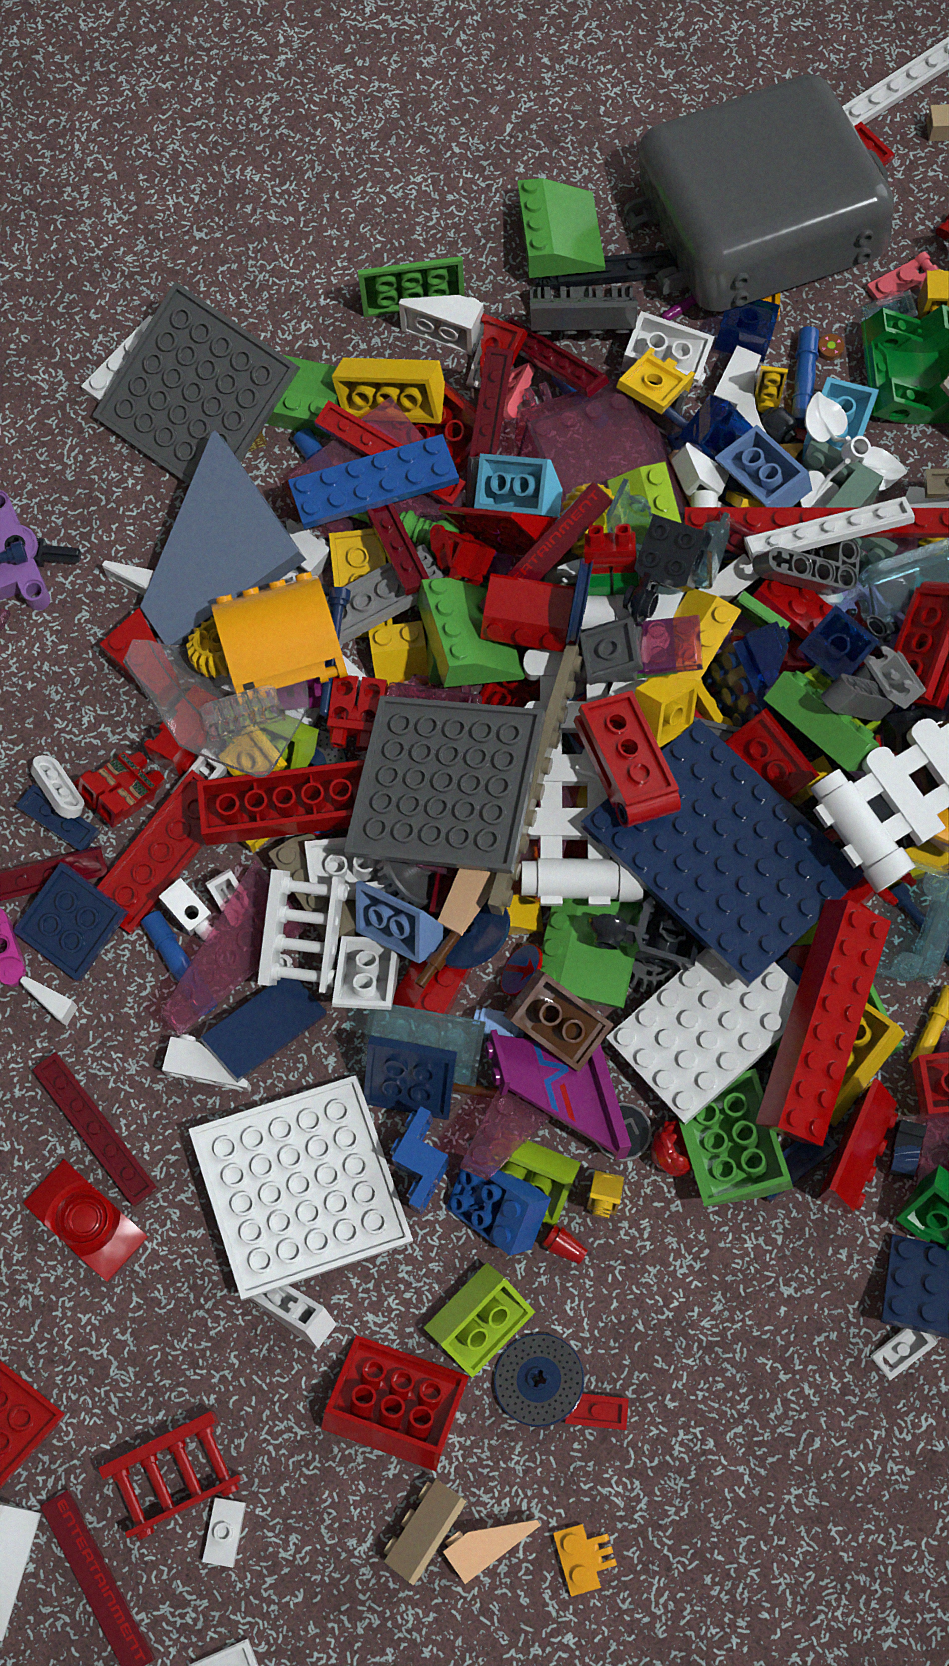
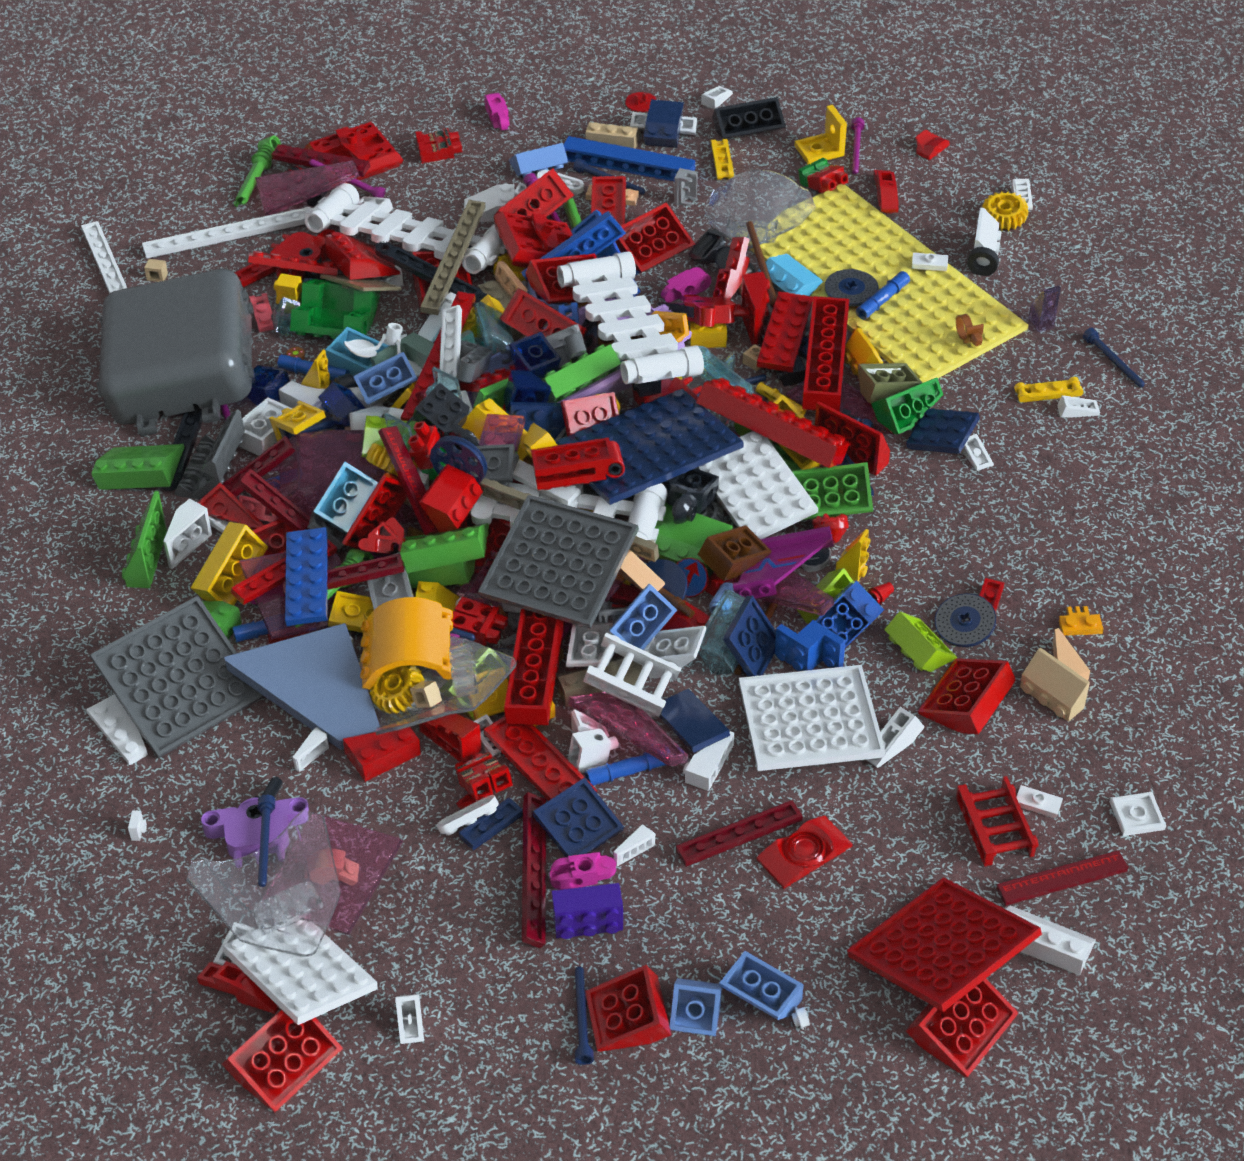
camera: 80 degrees left, 25 degrees down
(203, 682) = (426, 694): none -> tan plate

